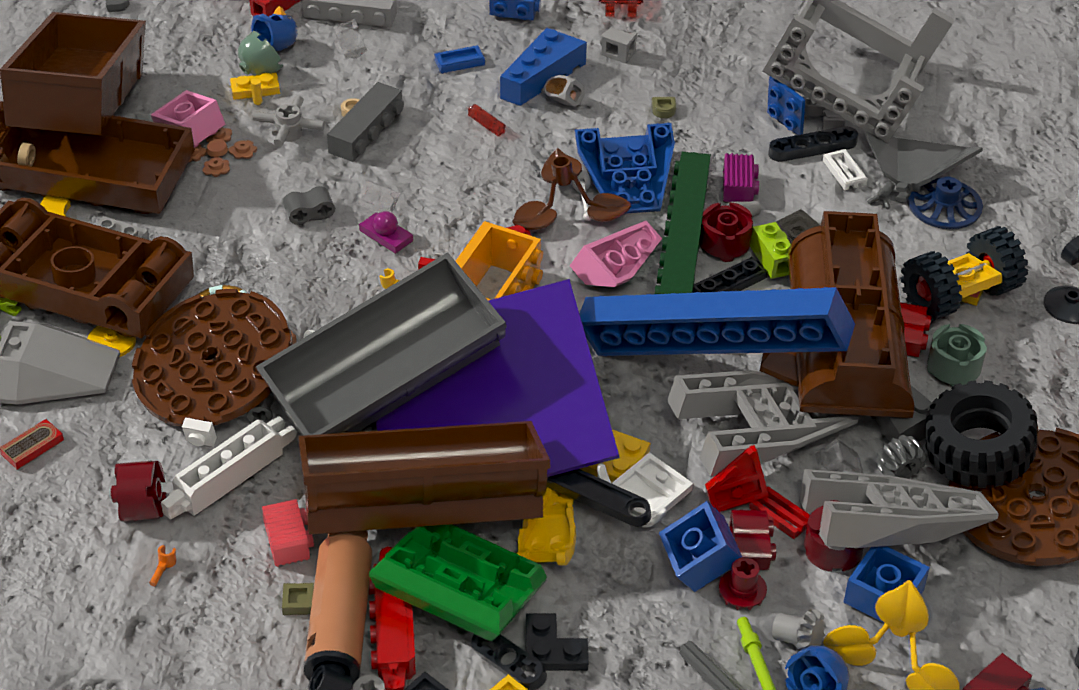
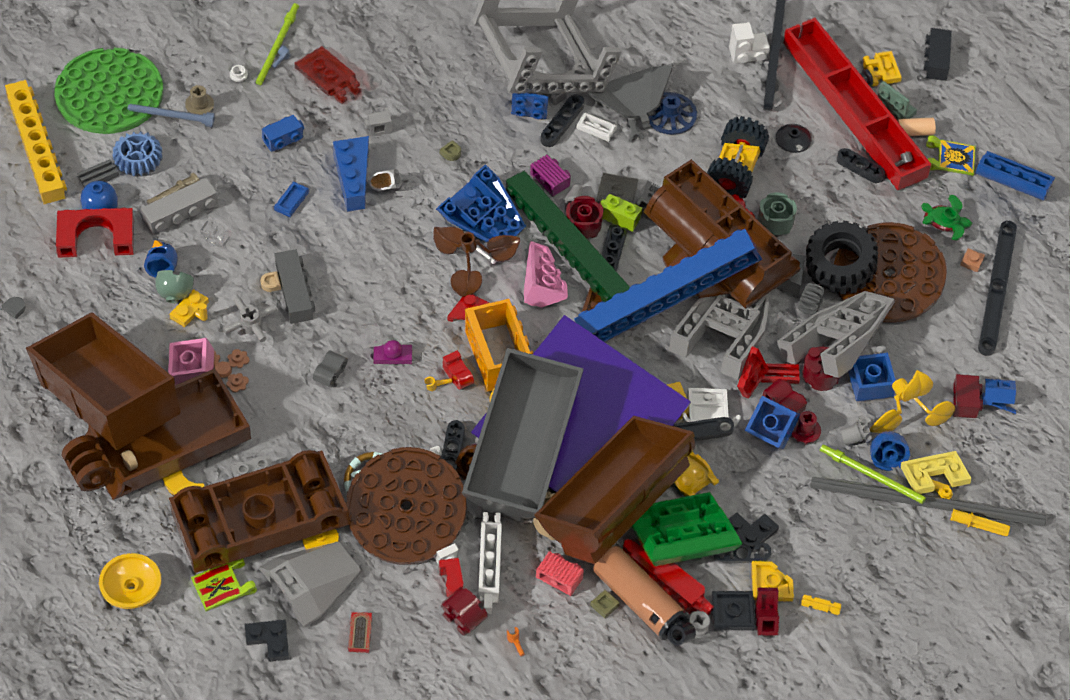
camera: 45 degrees left, 10 degrees up
(182, 453) = (453, 573): none -> red leg
(486, 119) = (360, 233): clear red axle -> none

